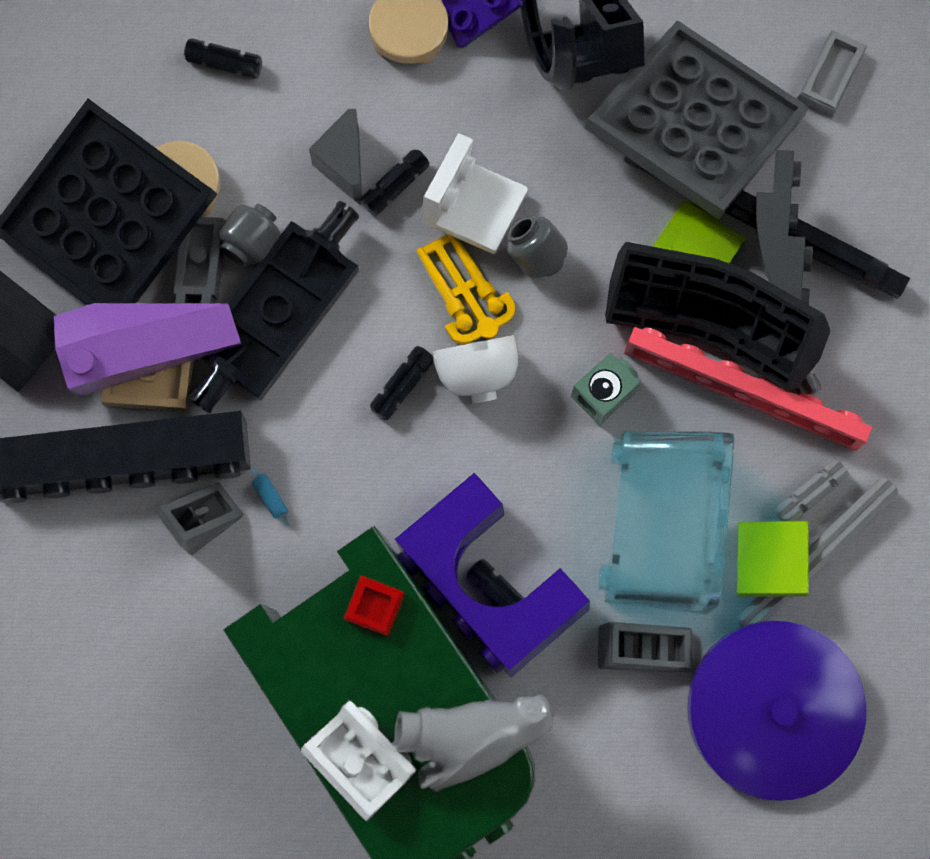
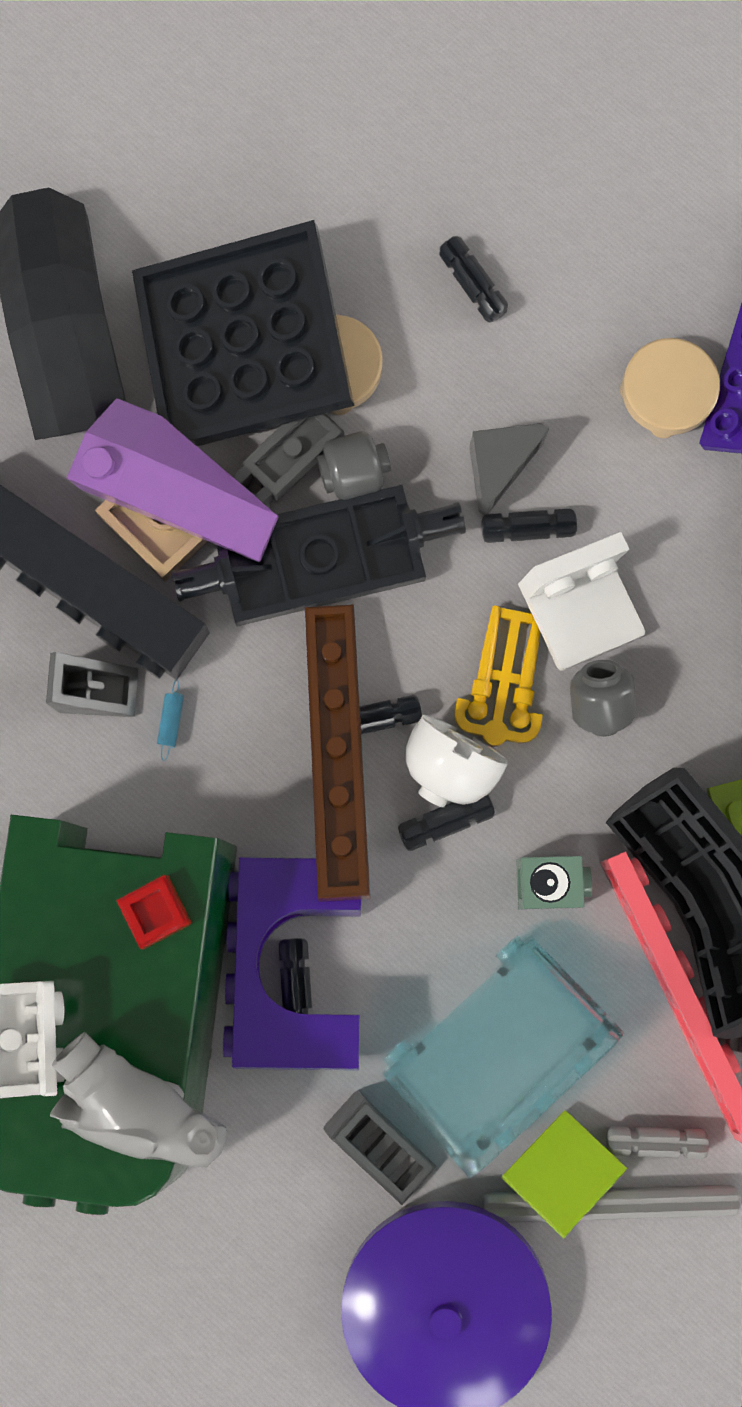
camera: 40 degrees right, 5 degrees up
(400, 421) = (336, 754): none -> reddish brown tile
(505, 409) = (444, 822): none -> black axle

